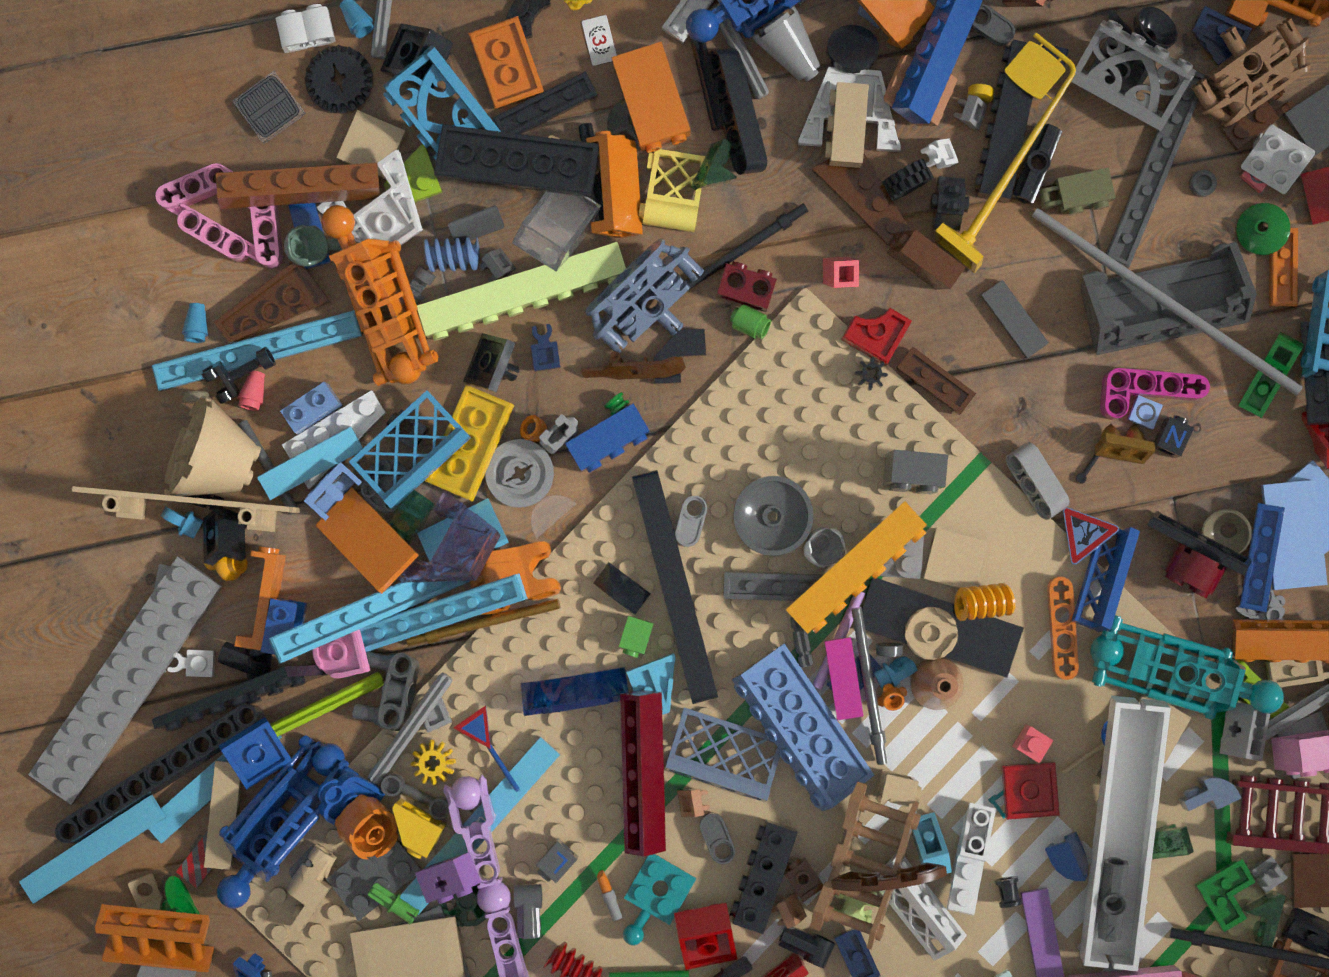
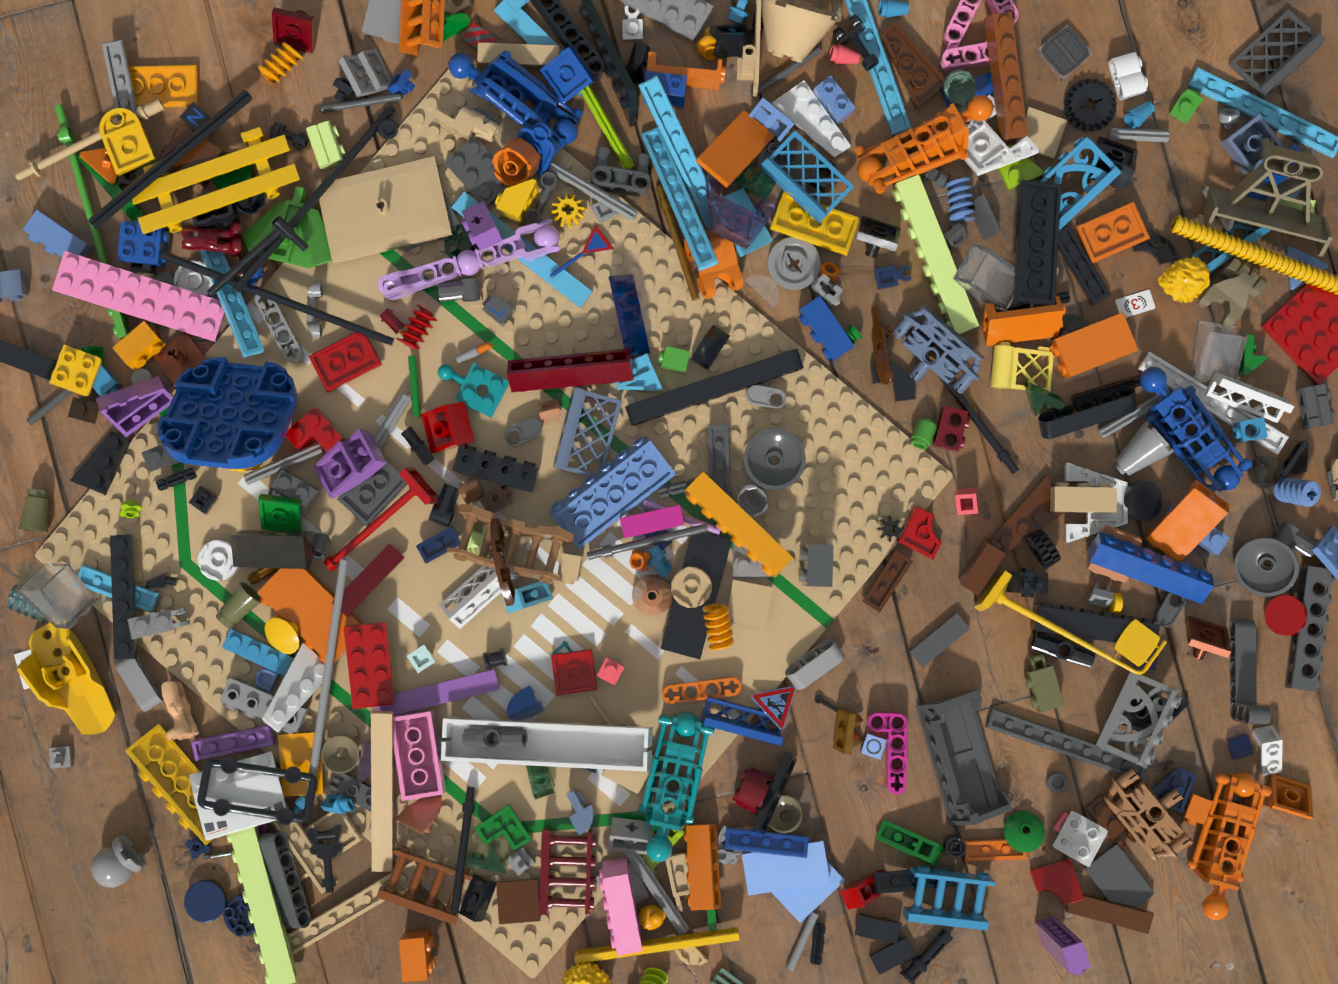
camera: 85 degrees right, 0 degrees up
(310, 463) = (791, 102): medium azure tile -> none
(342, 656) = (645, 136): bright pink tile -> none
(392, 902) = (459, 186): bright green axle -> none
(889, 649) = (676, 555): dark grey tile -> none
(940, 154) = (1065, 574): white plate -> none
(970, 858) = (519, 628): white slope -> none
(1157, 26) = (1179, 738): black piece -> none
(1167, 302) = (961, 757): light grey piece -> none
(1173, 436) = (856, 769): black brick -> none
(1272, 321) = (952, 842): none -> black wheel

